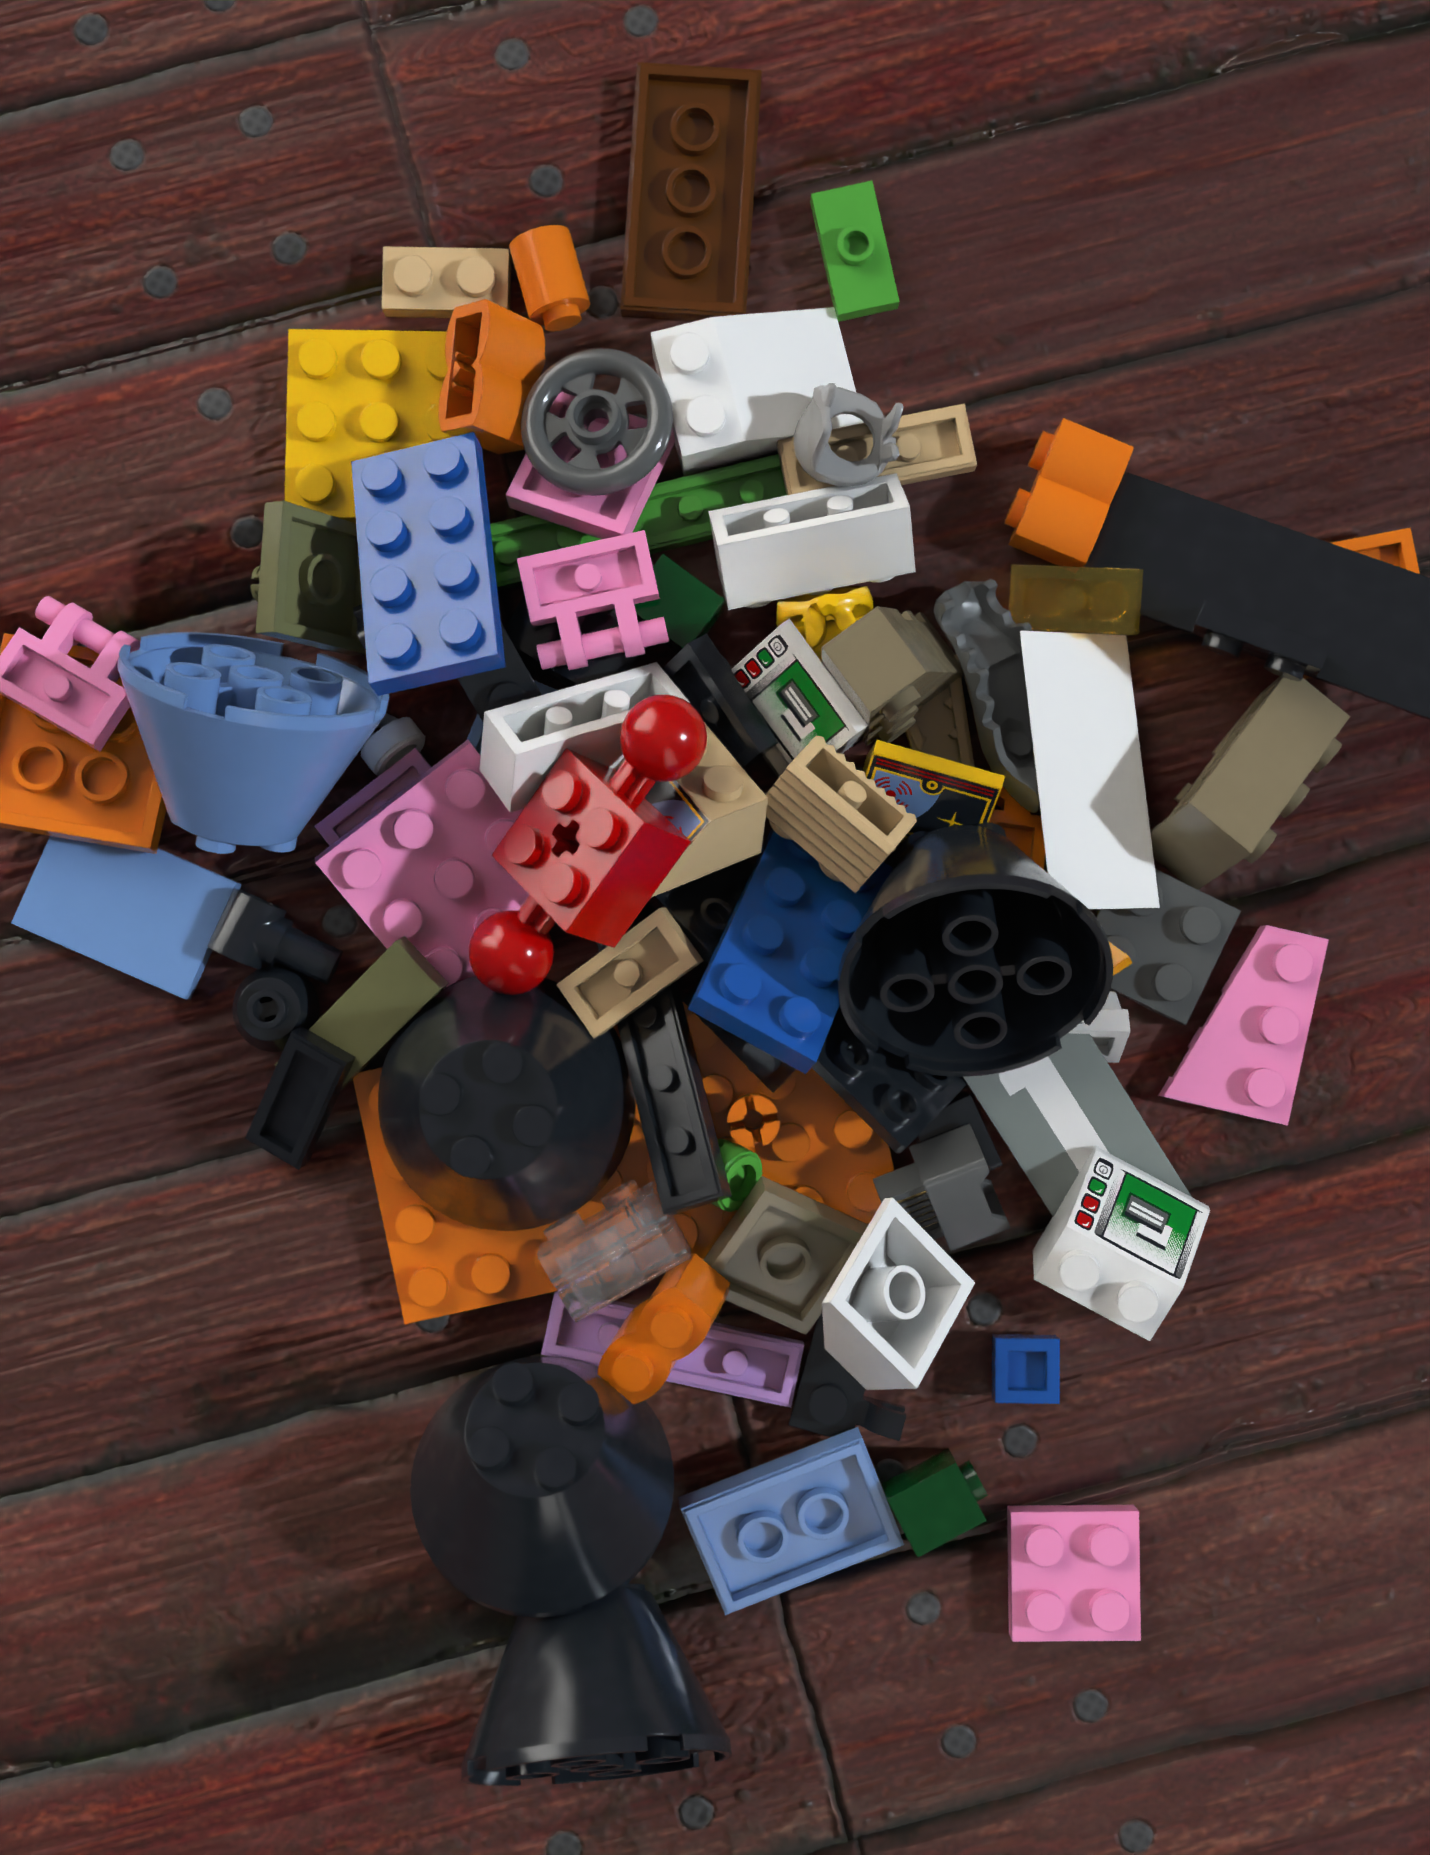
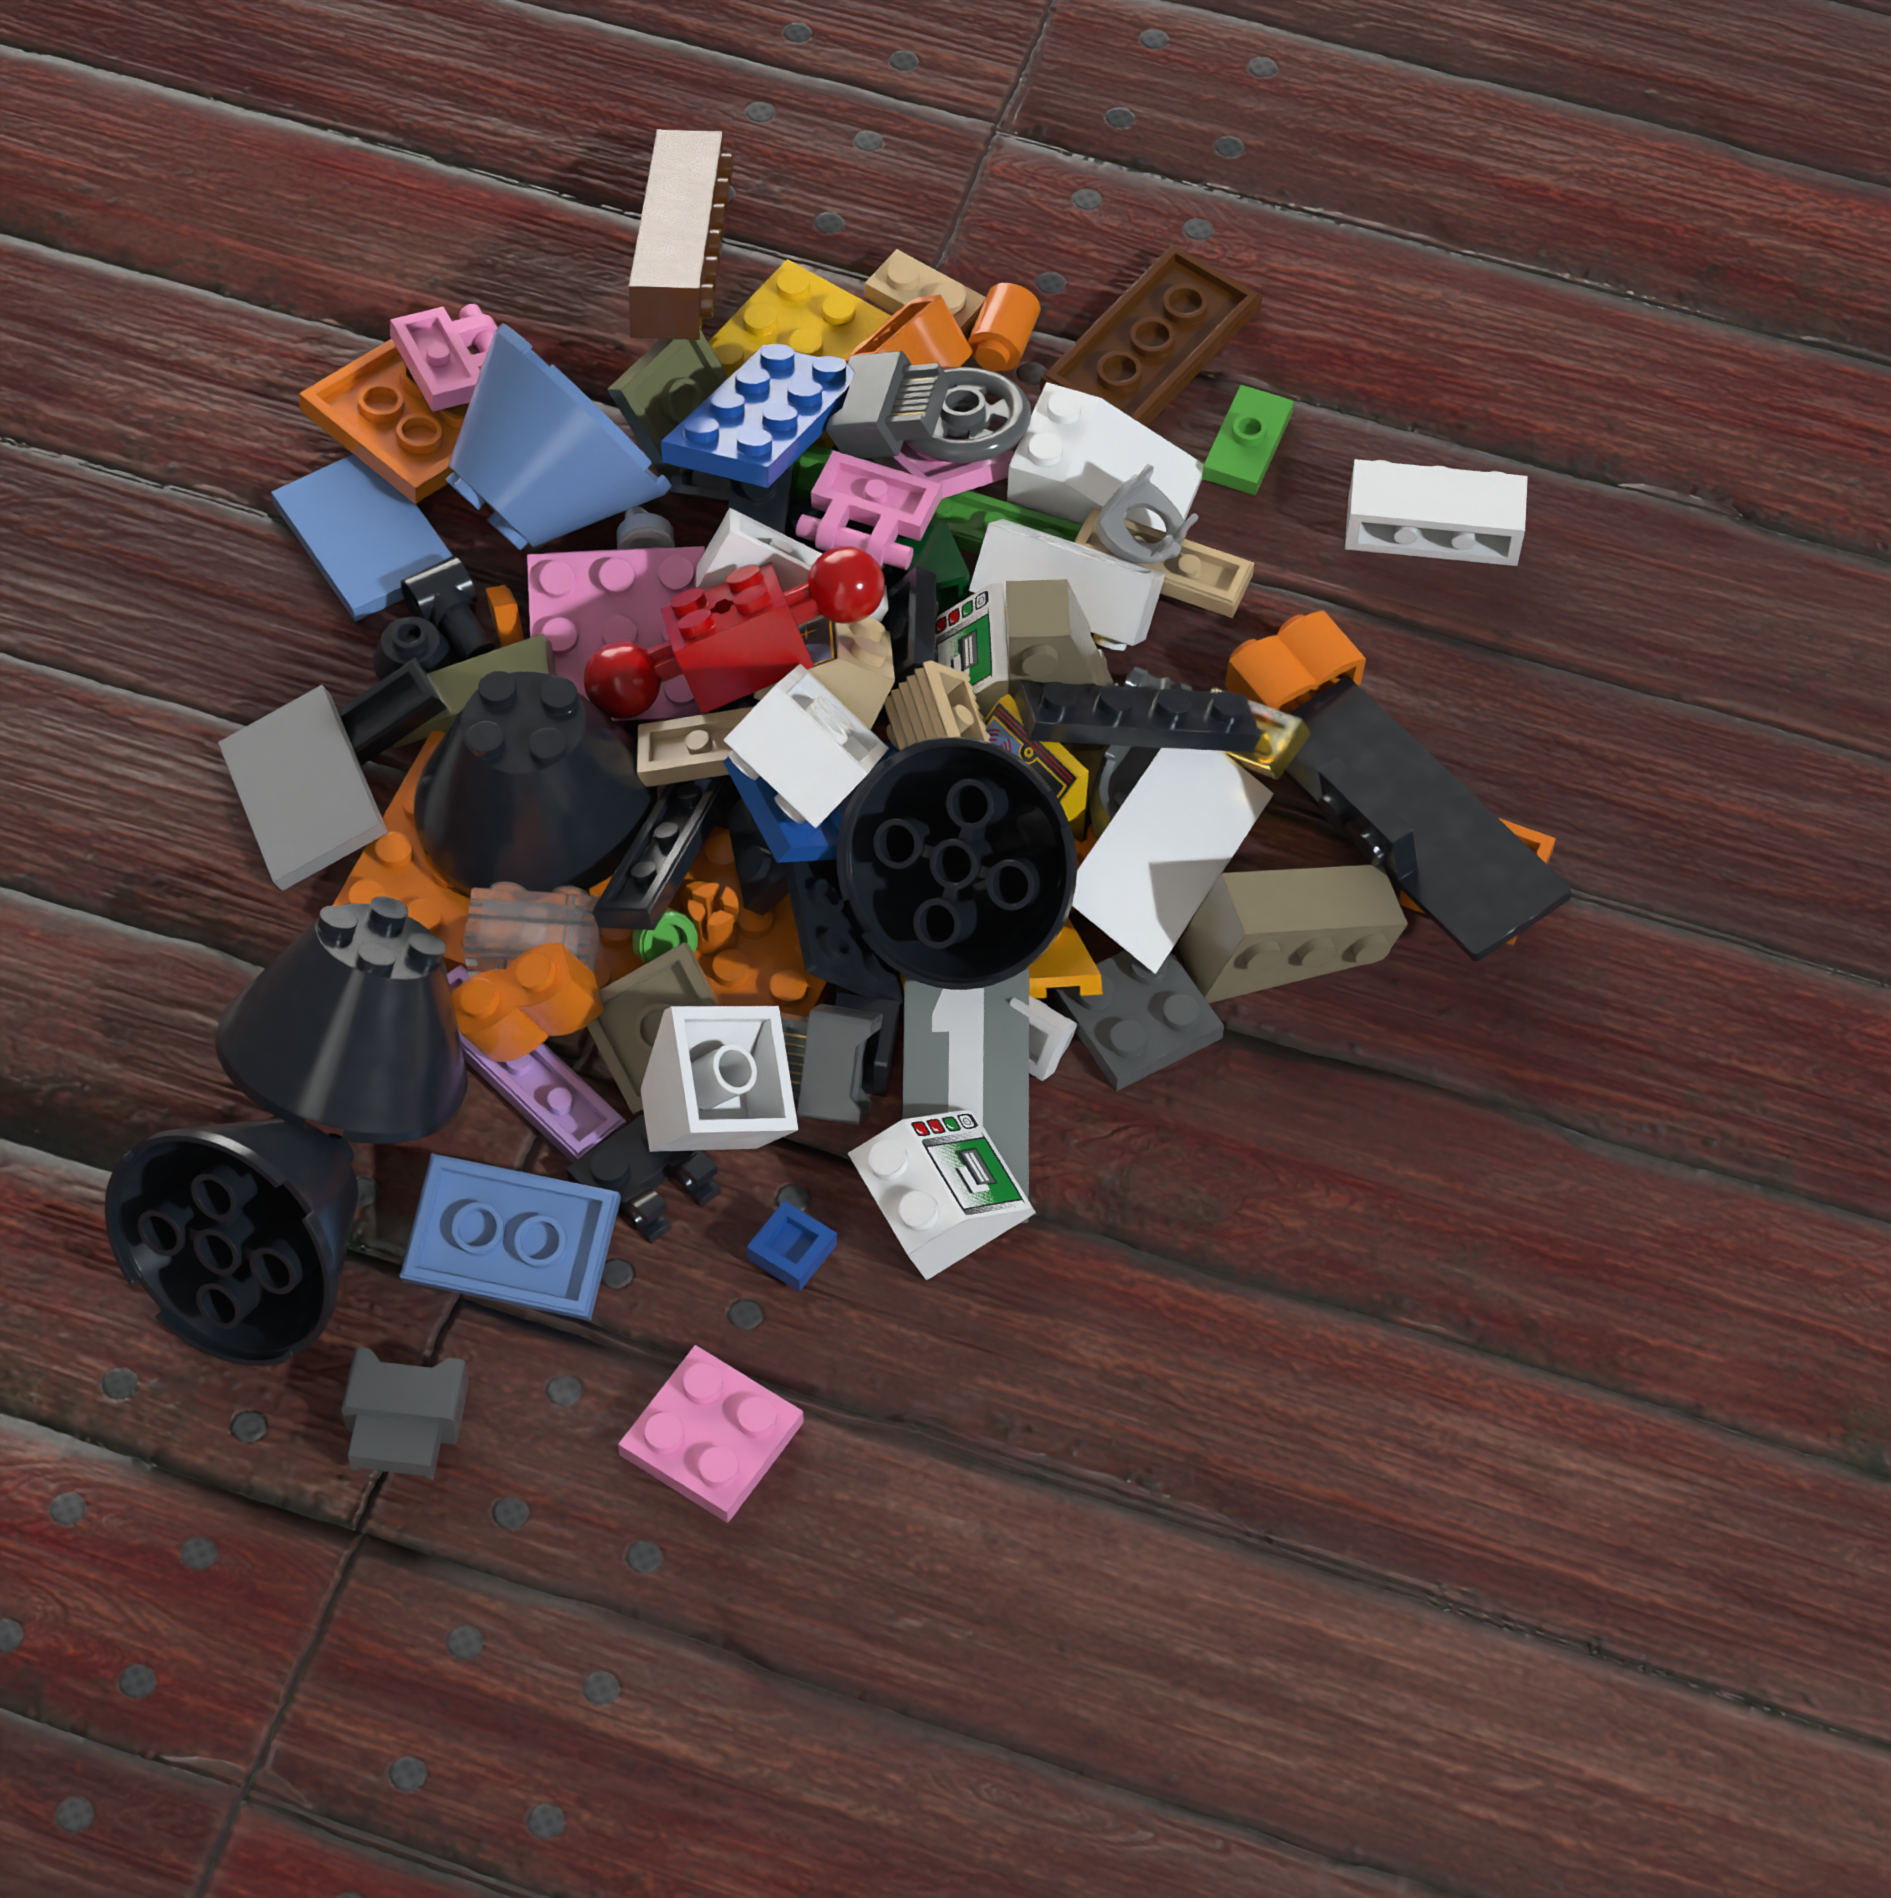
camera: 35 degrees right, 30 degrees down
(185, 400) = (680, 235): none -> brick
(285, 1216) = (302, 788): none -> light grey tile
(328, 917) = (504, 615): none -> orange tile
(534, 471) = (887, 405): none -> dark grey piece
(765, 952) = (804, 747): none -> white slope
(821, 1738) = (402, 1412): none -> dark grey piece
(936, 1501) = (639, 1292): dark green brick -> none
(999, 678) = (1136, 717): none -> black plate
(1084, 224) = (1436, 512): none -> white brick
(1257, 1032) = (1173, 1125): bright pink wing -> none

